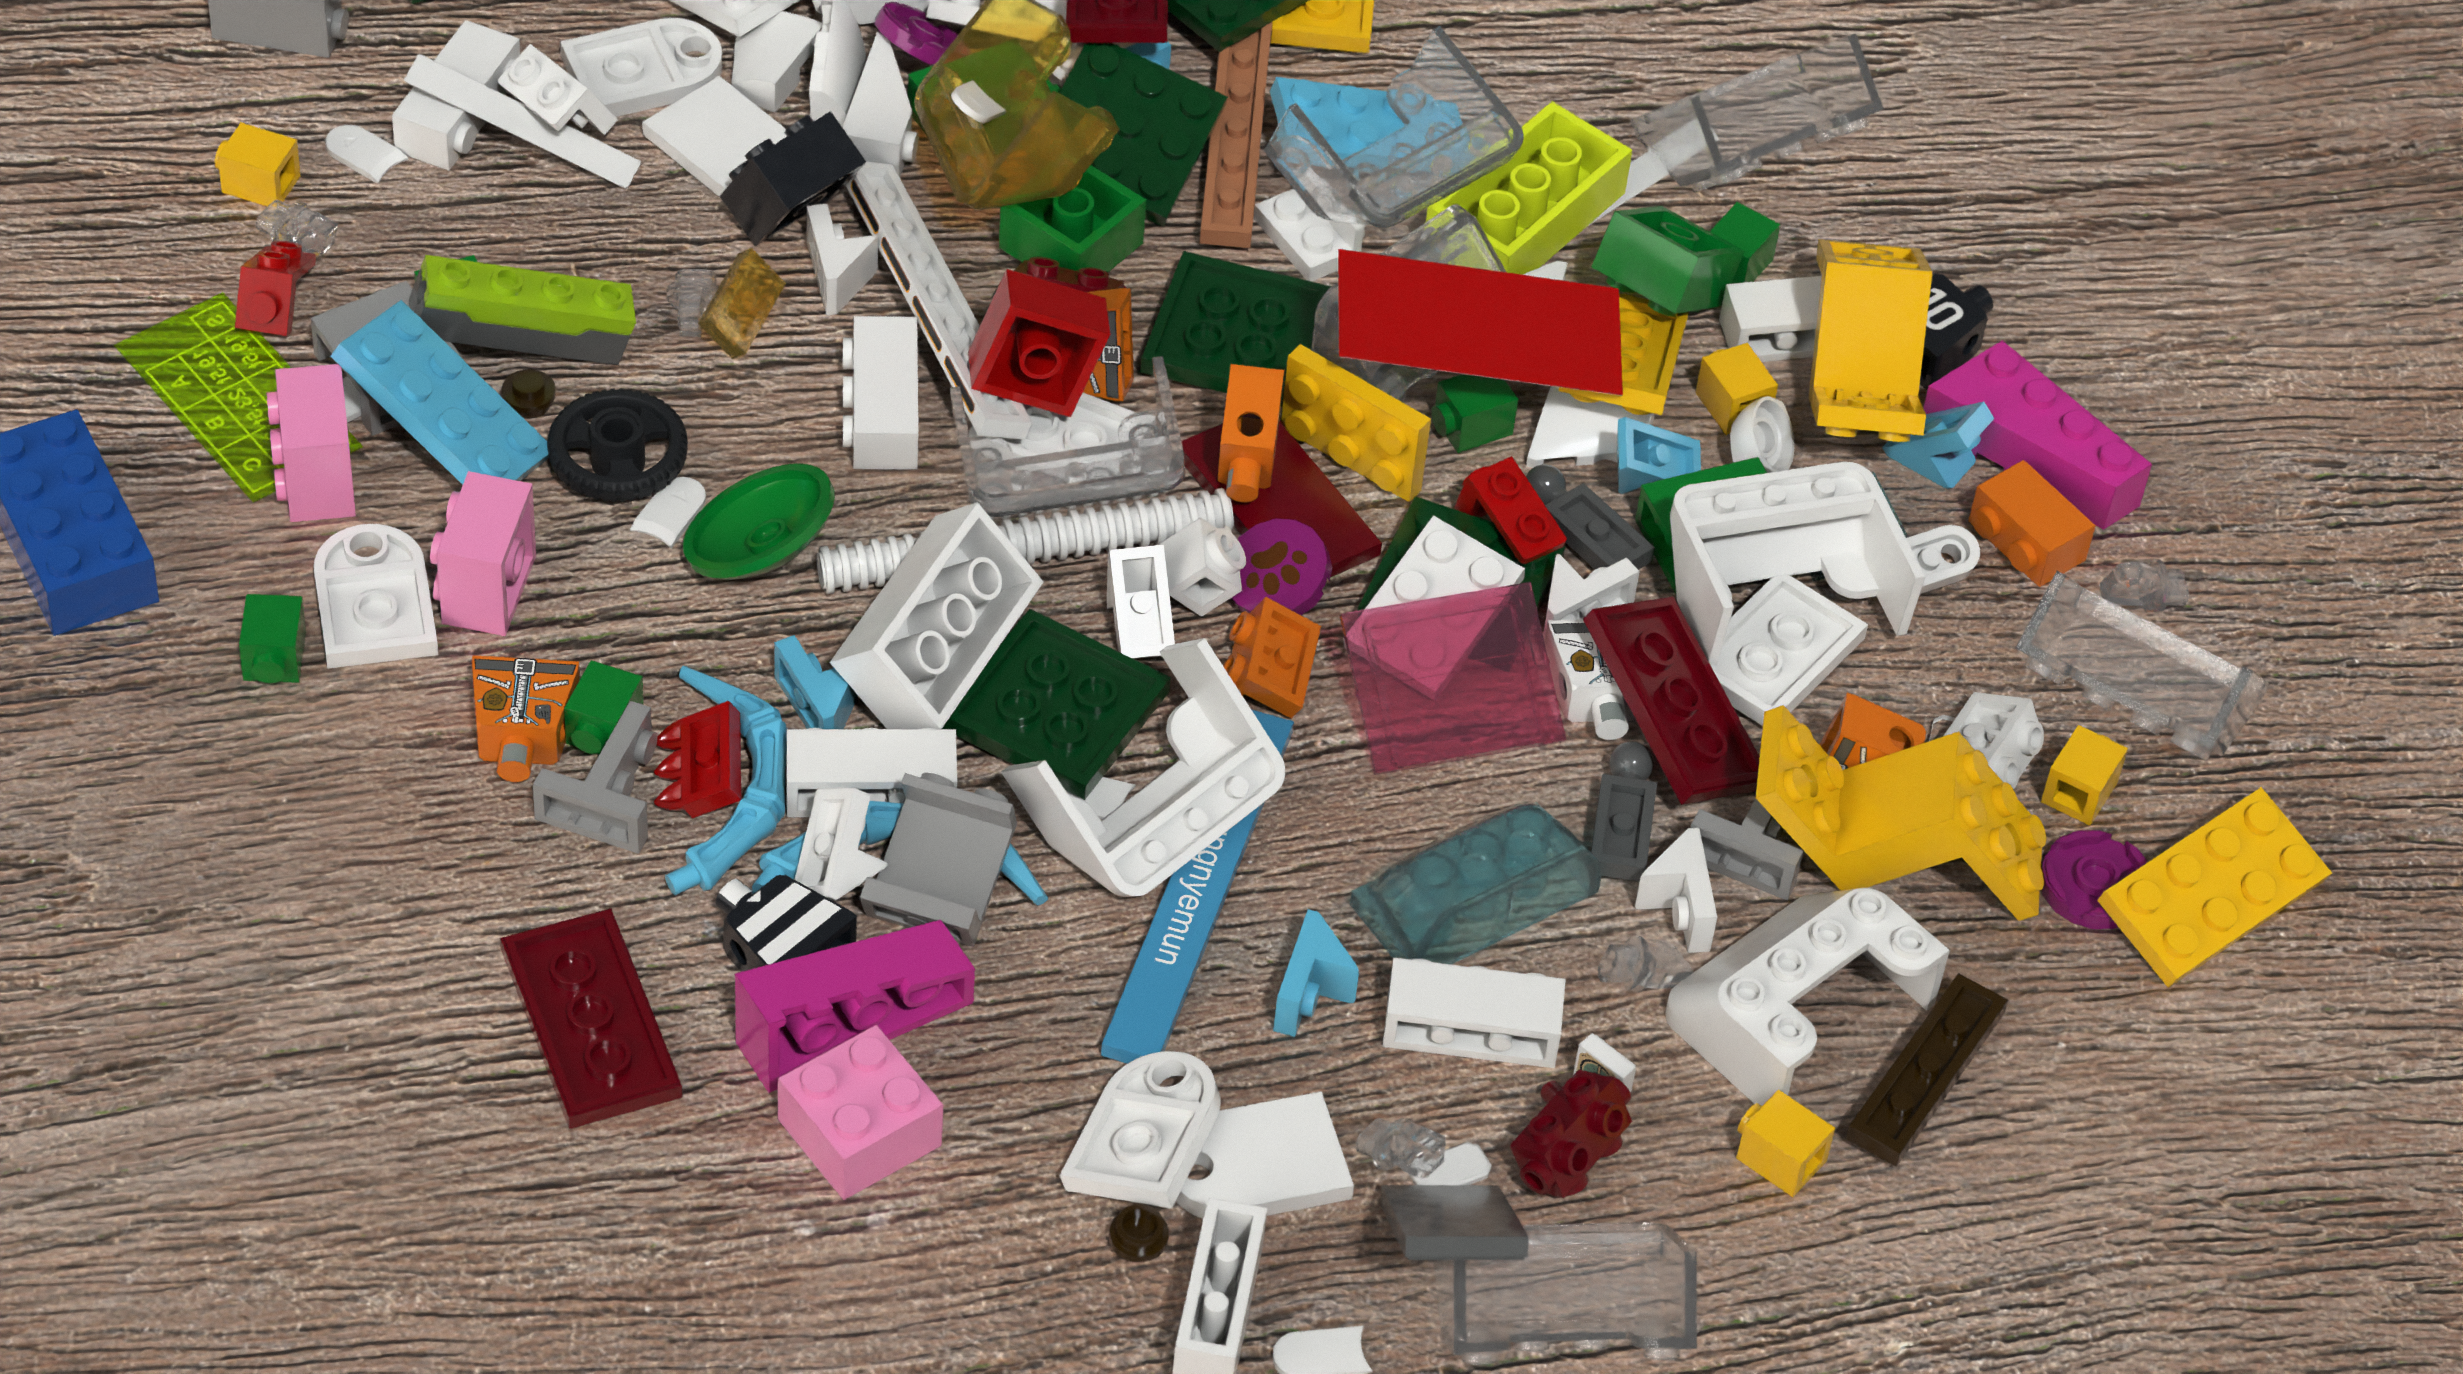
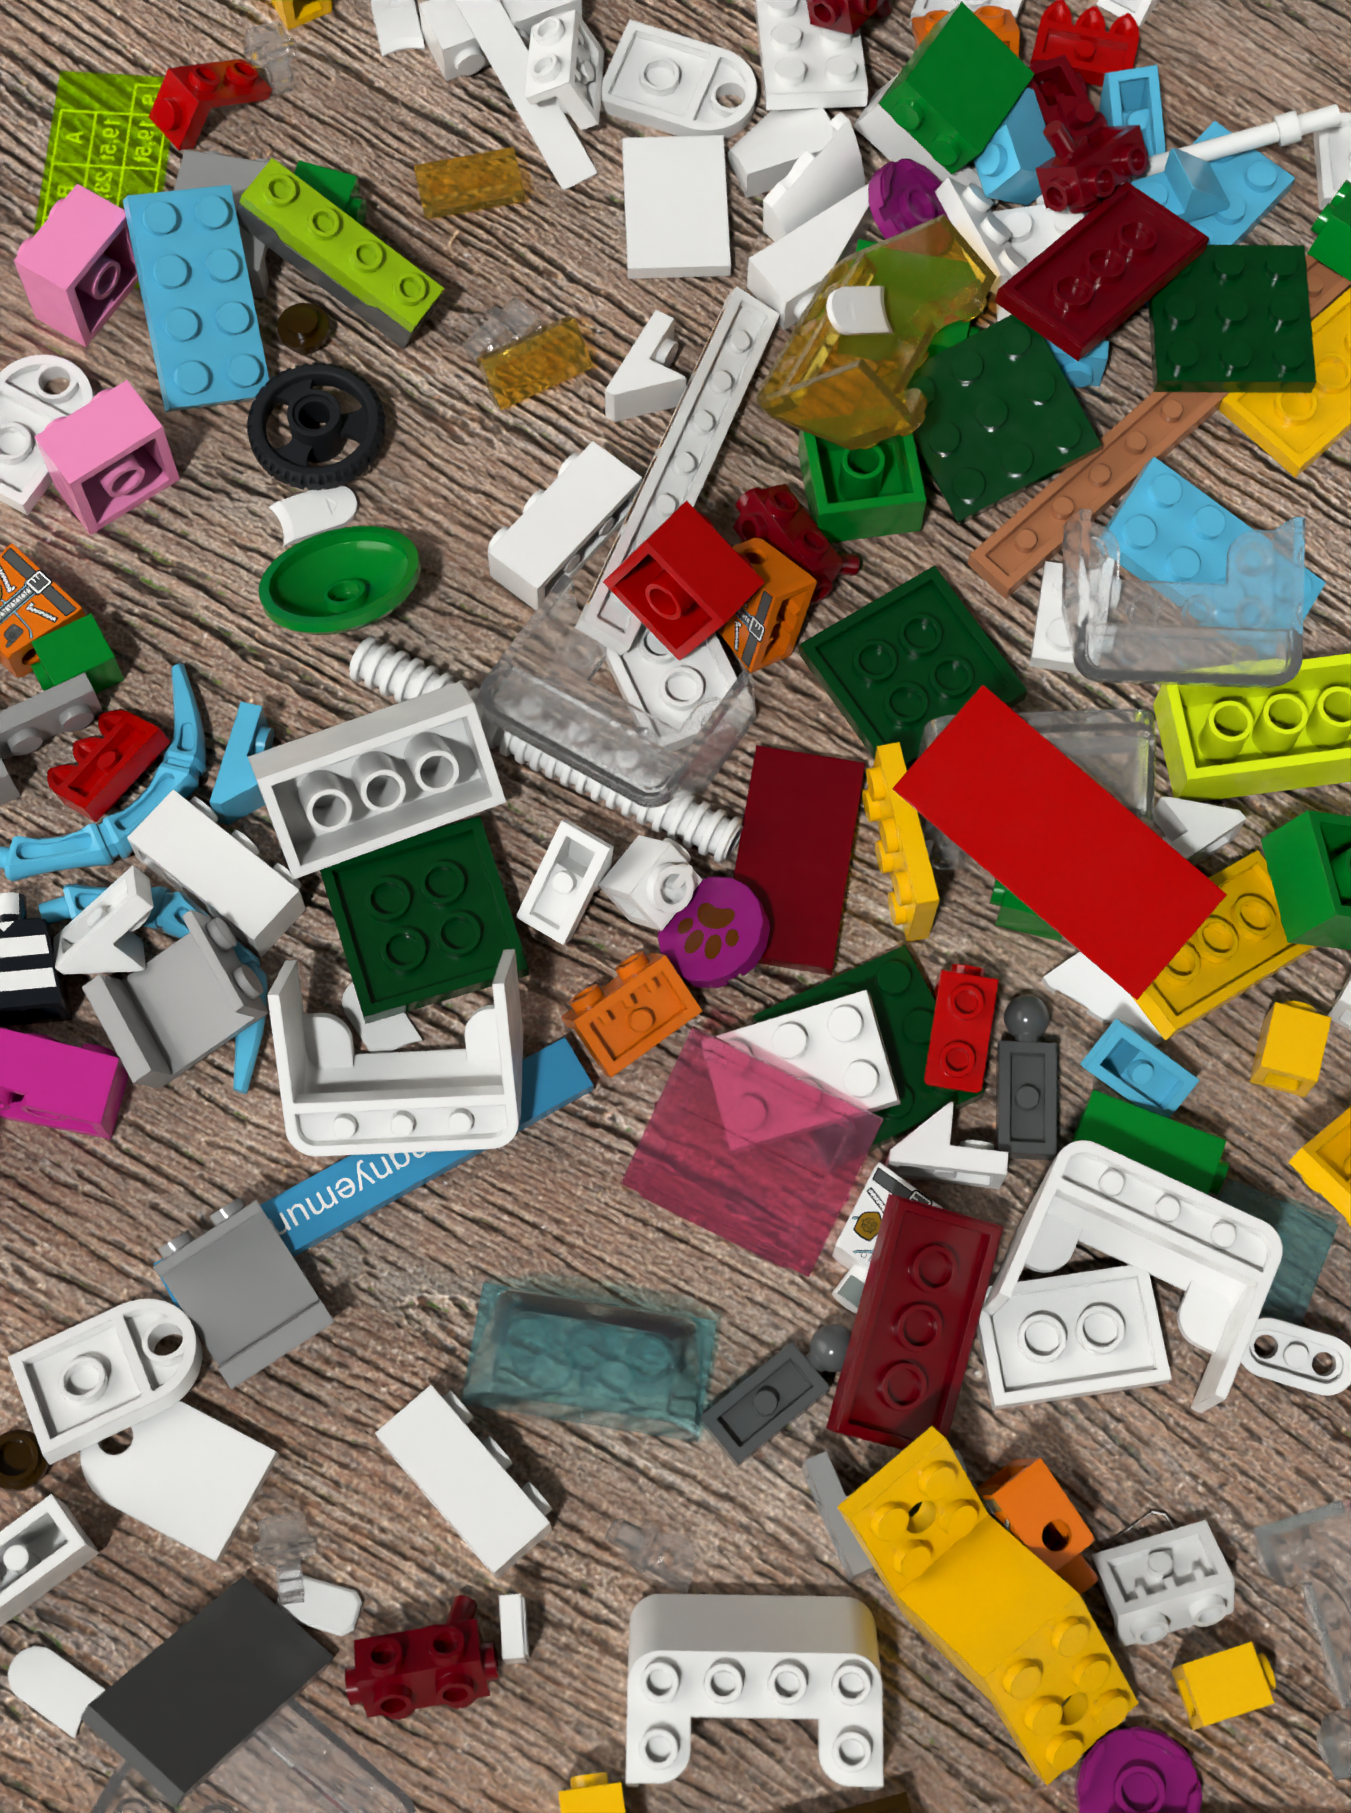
camera: 45 degrees right, 20 degrees up
(554, 220) = (469, 183): none -> clear yellow plate
(787, 177) = (664, 274): black brick -> none
(1192, 1007) = (242, 1291): none -> light grey panel
(1246, 442) = (807, 774): orange torso -> none
(1315, 968) = (382, 1324): medium azure slope -> none
(1682, 882) = (763, 1495): white slope -> none
(1764, 432) = (1261, 1120): white hat -> none

